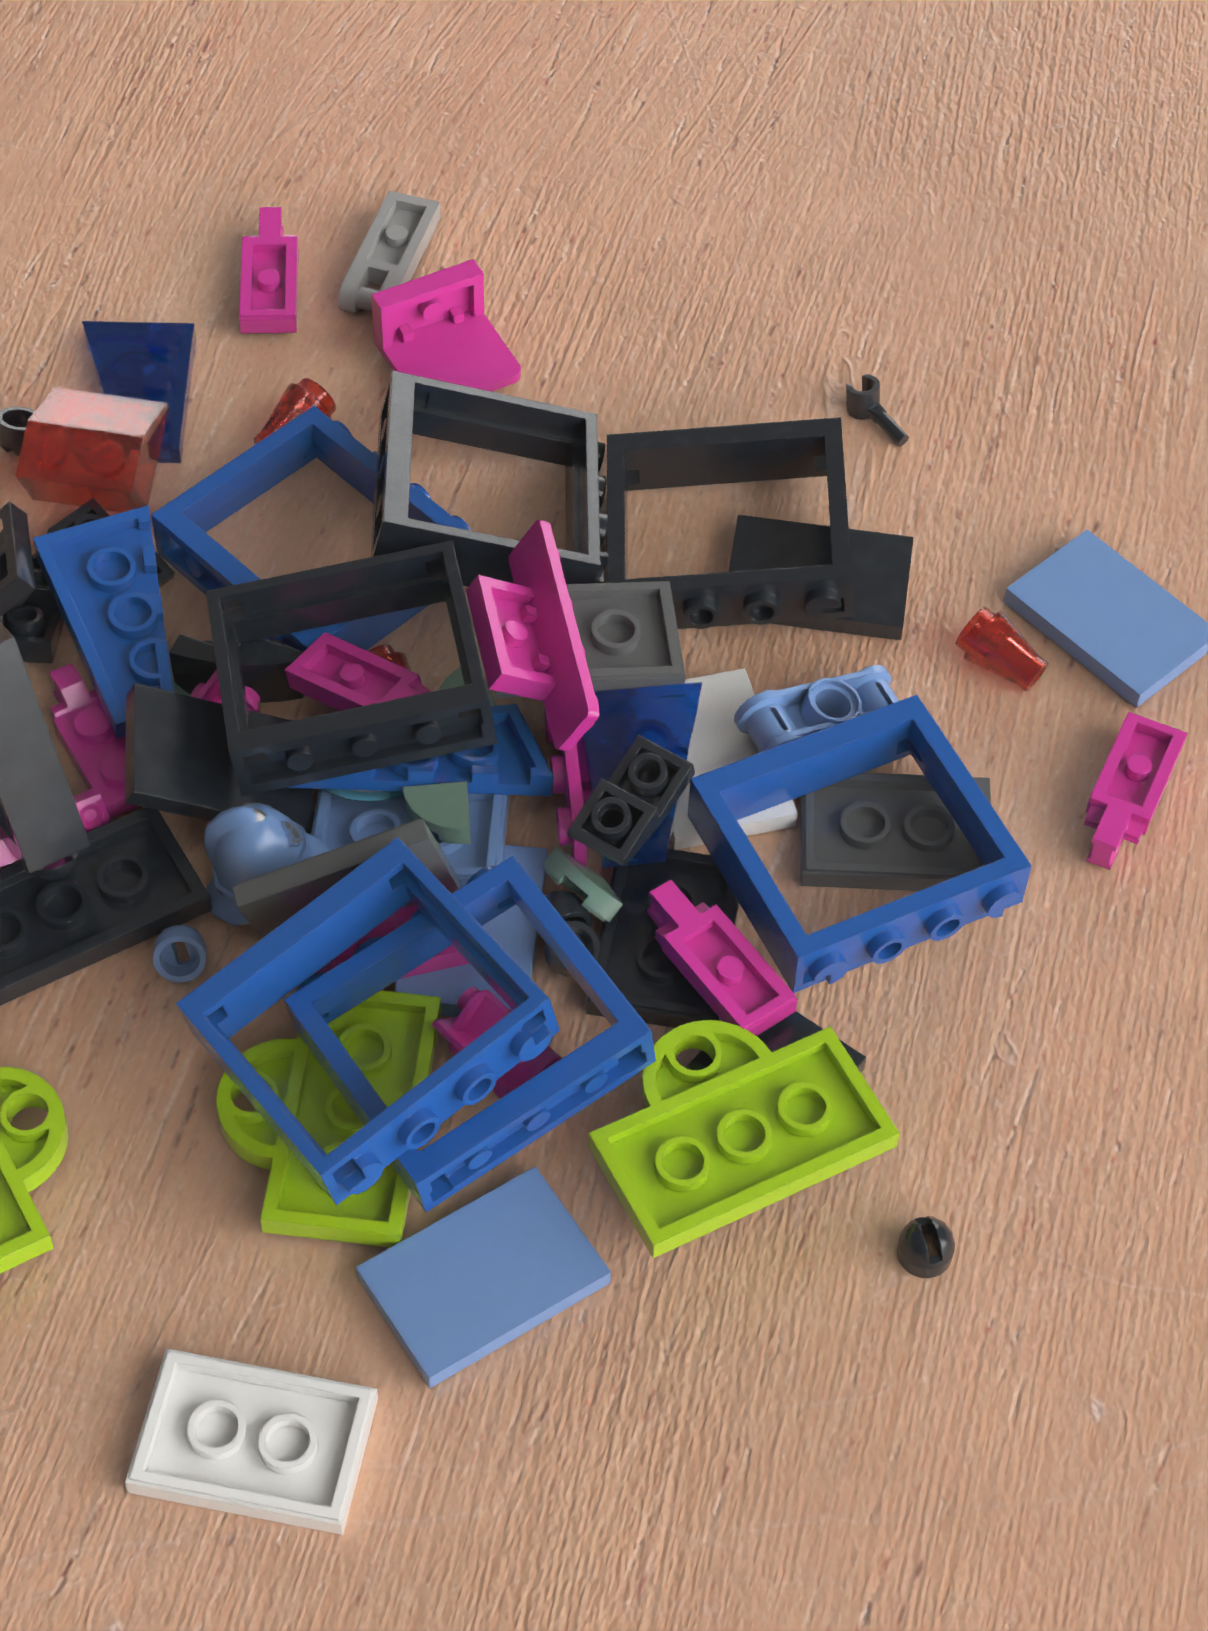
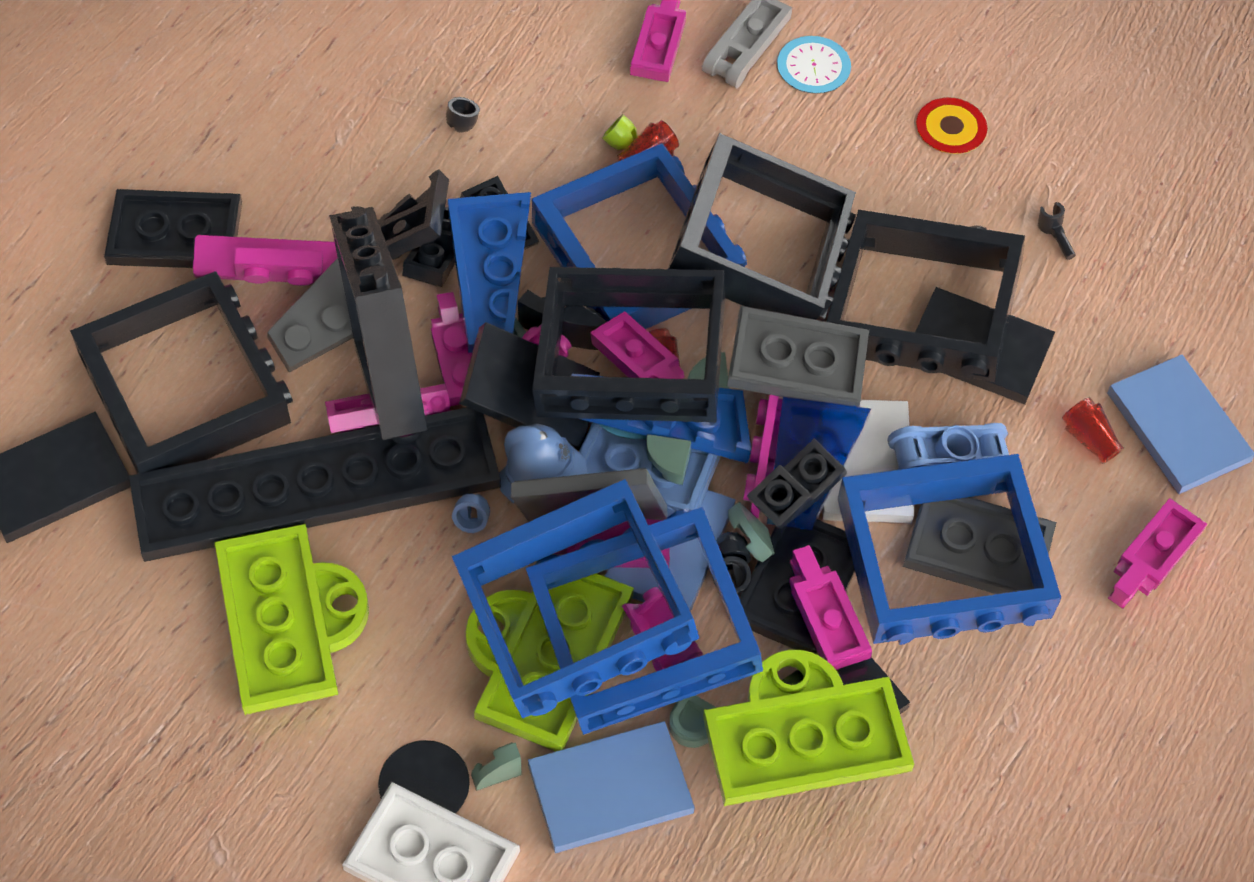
camera: 15 degrees right, 5 degrees up
(92, 448) = (506, 140): clear red slope -> none
(147, 364) = (555, 98): clear blue wing -> none
(214, 1321) = (428, 771): none -> black sticker
(250, 409) = (620, 133): none -> lime hinge
(321, 1289) = (503, 768): none -> sand green tile
(441, 332) = (766, 108): dark pink bracket -> none
(507, 265) = (814, 64): none -> sticker
(533, 638) = (758, 352): dark pink bracket -> none
(568, 1161) = (687, 722): none -> sand green tile
(696, 310) = (951, 125): none -> sticker
(915, 1250) = (903, 845): black hinge -> none

